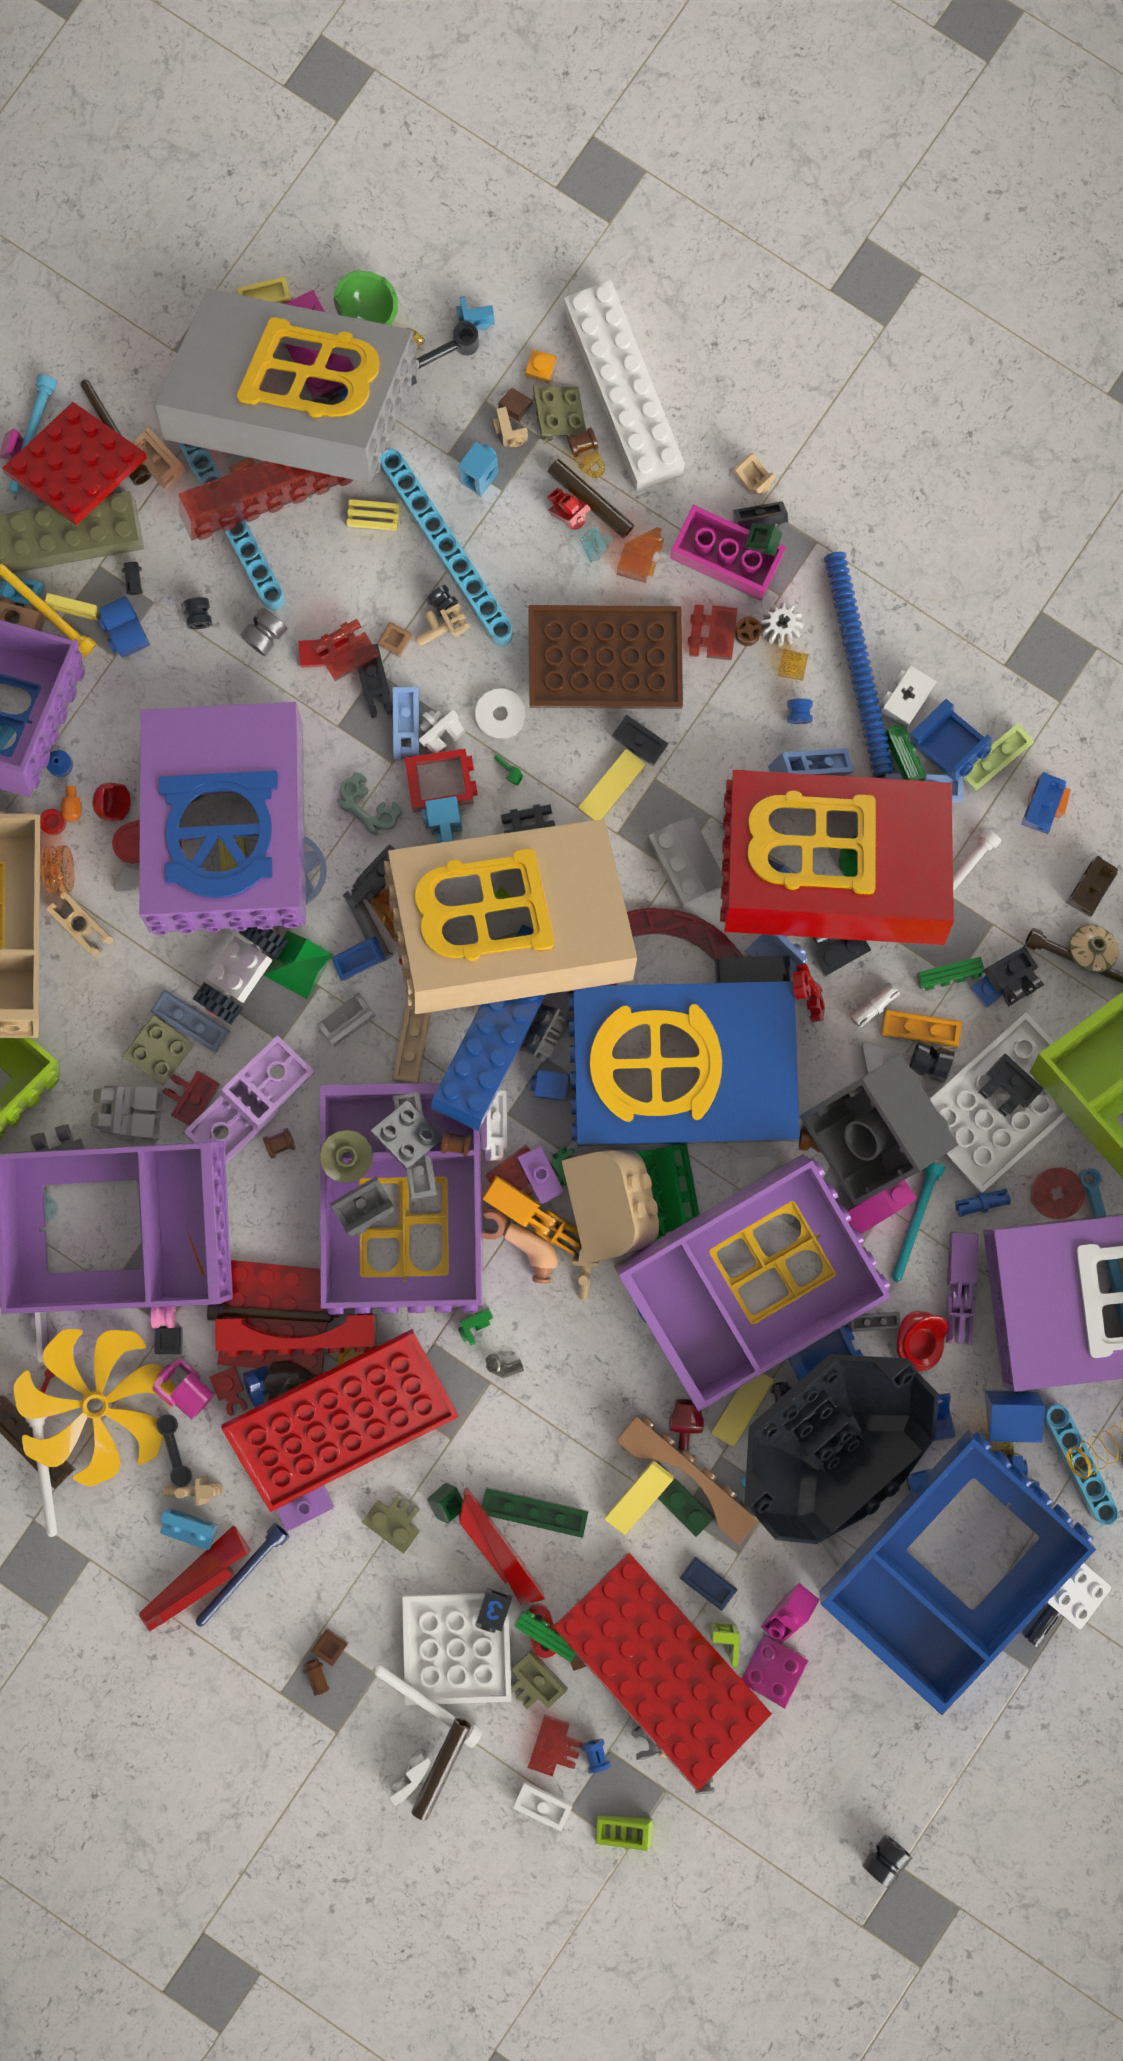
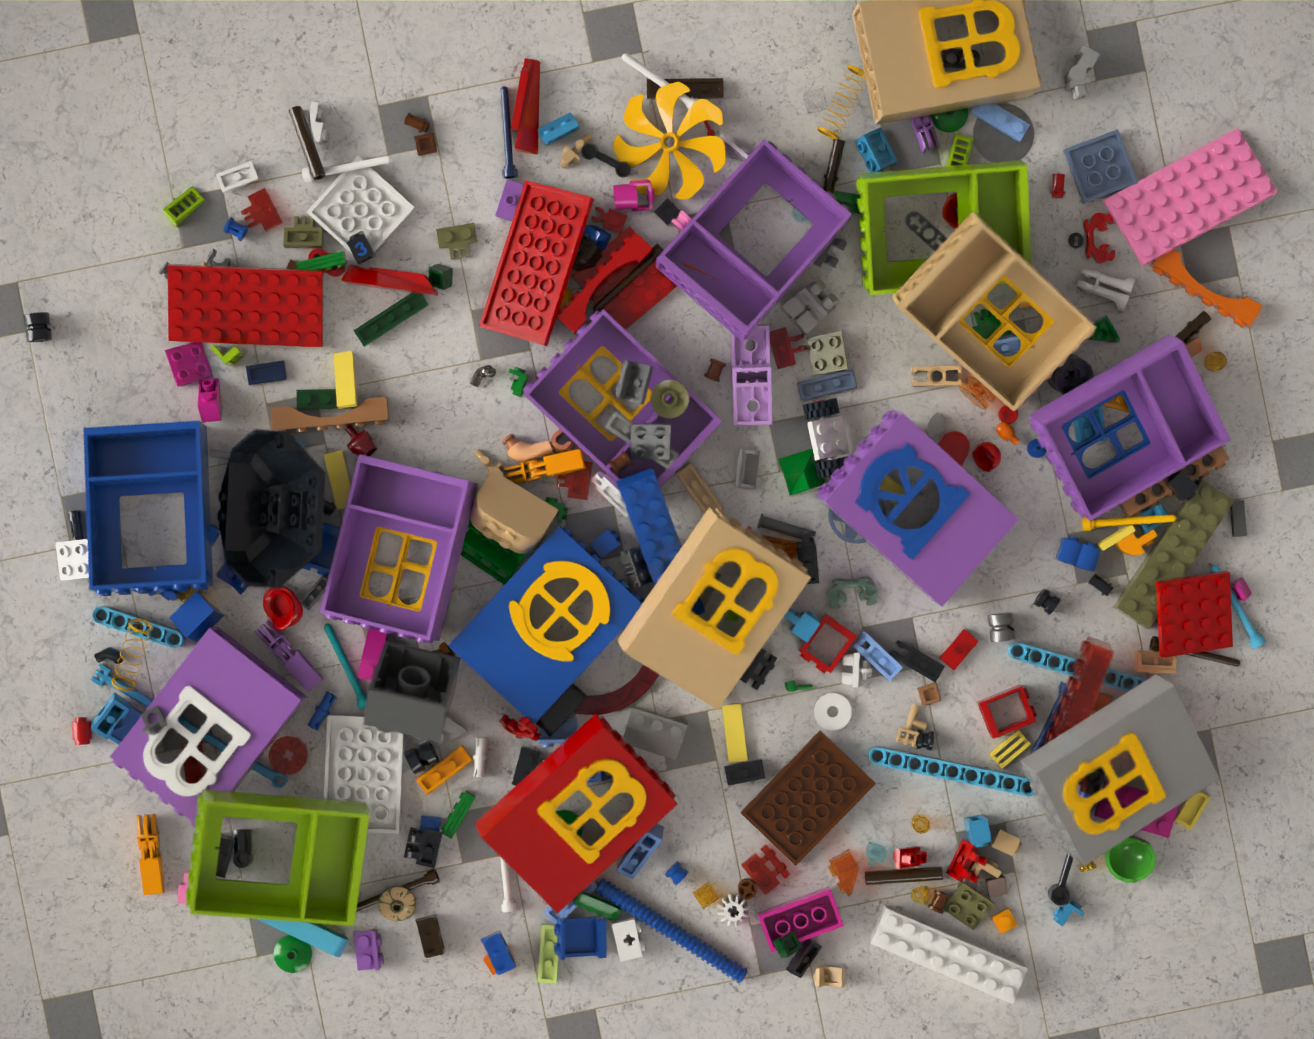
camera: 135 degrees right, 5 degrees up
(63, 583) = (1133, 545): none -> light orange brick
(267, 518) = (1048, 725): none -> dark blue piece
(348, 656) = (942, 658): clear red plate -> none
(358, 958) = (772, 507): blue tile -> none
(362, 562) = (988, 718): none -> red window
(463, 432) = (1006, 842): none -> tan brick
(519, 526) = (918, 829): none -> clear yellow bush
(522, 456) = (962, 860): none -> red plate
(540, 1175) = (562, 491): medium lavender plate -> none
(1015, 1081) = (368, 790): black plate -> none

